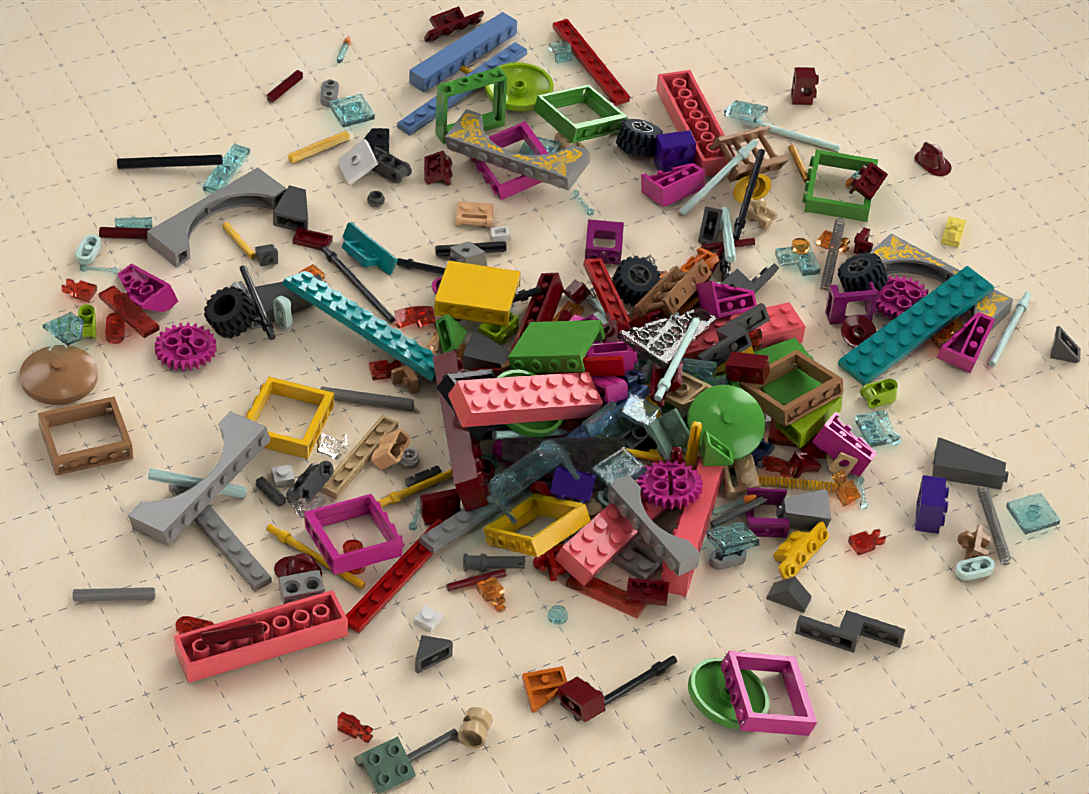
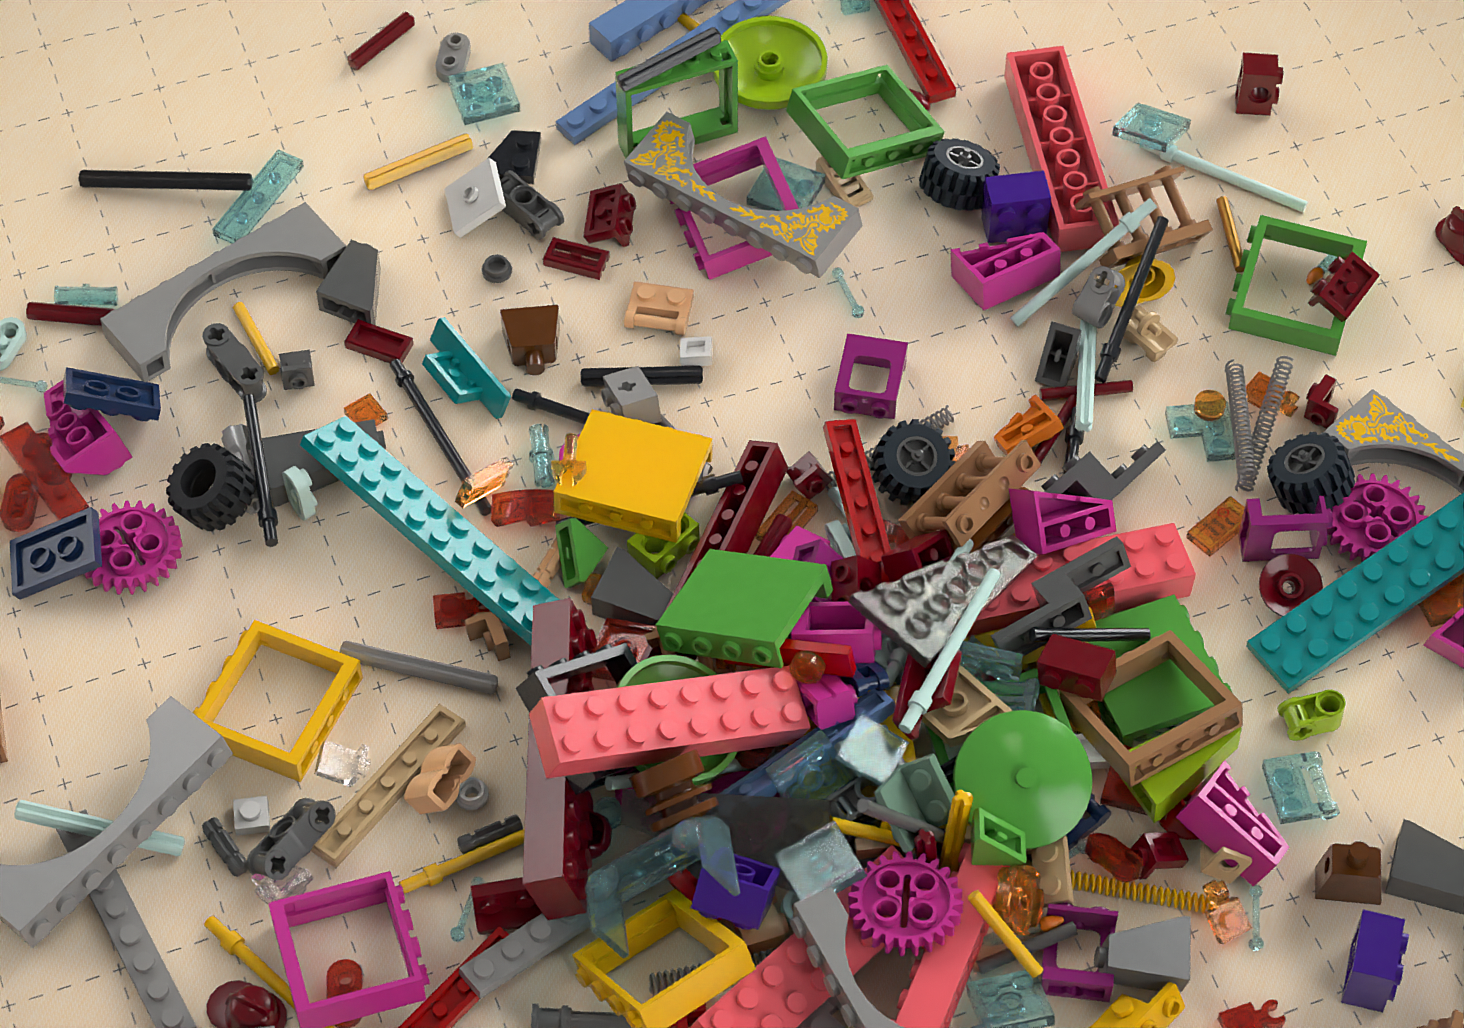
camera: 10 degrees right, 10 degrees up
(144, 350) = (55, 553): none -> dark blue plate
(162, 269) = (111, 394): none -> dark blue plate
(229, 251) = (234, 361): none -> dark grey piece
(390, 302) = (483, 482): none -> clear orange tile
(402, 230) = (531, 336): none -> reddish brown torso
(419, 290) = (541, 455): none -> clear light blue pin
(421, 192) = (574, 261): none -> dark red tile
(435, 288) = (569, 461): none -> clear yellow bar
(468, 76) = (669, 59): none -> axle
(532, 429) = (674, 790): none -> reddish brown wheel
(598, 370) = (807, 667): none -> clear orange tile
(659, 437) = (898, 819): none -> dark grey bar
(726, 498) = (1005, 933): none -> yellow bar
(730, 194) = (1097, 299): none -> light grey piece
(730, 484) = (1018, 898): none -> clear orange plate
(772, 355) = (1091, 634): none -> black bar
(813, 307) = (1217, 527): none -> clear orange tile
(821, 258) = (1230, 383): none -> light grey piece
(911, 464) = (1349, 874): none -> reddish brown torso

